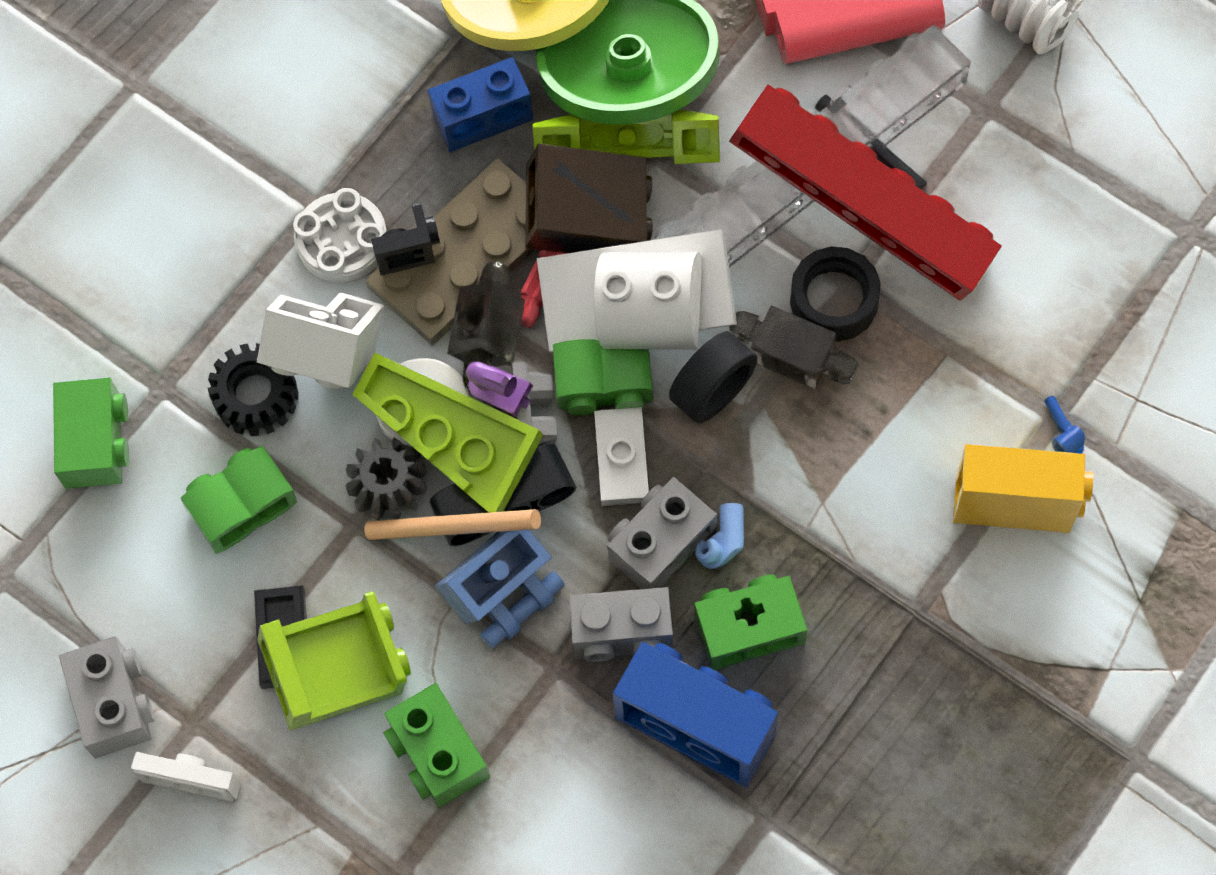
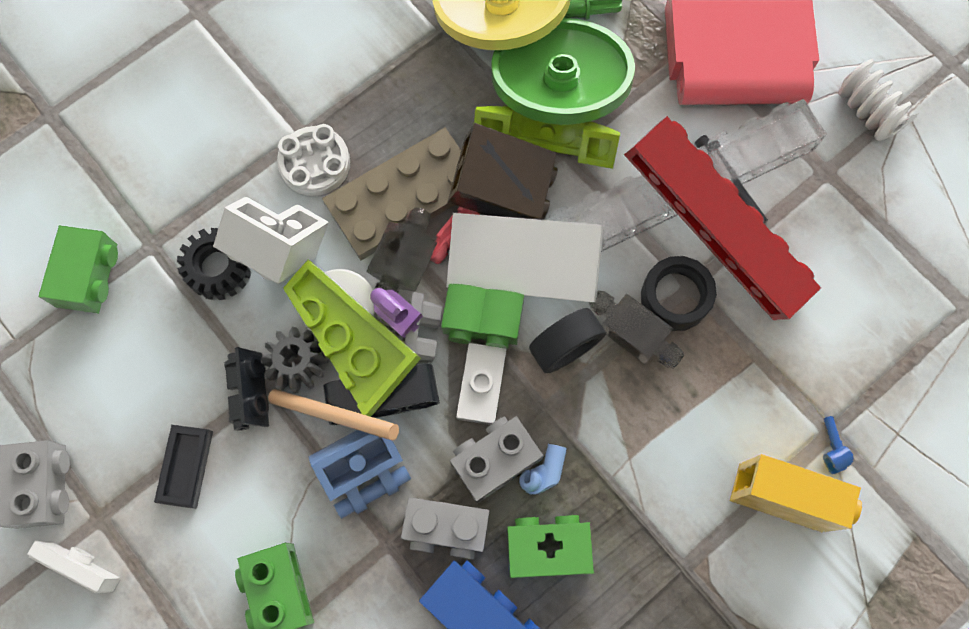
camera: 10 degrees right, 5 degrees up
(238, 498) = (178, 348): bright green brick -> none
(329, 509) = (247, 375): none -> black hinge
(334, 661) = (210, 501): lime panel -> none
(404, 248) = (356, 182): black bracket -> none
(481, 104) = (442, 83): blue brick -> none
(648, 300) = (529, 268): white brick -> none

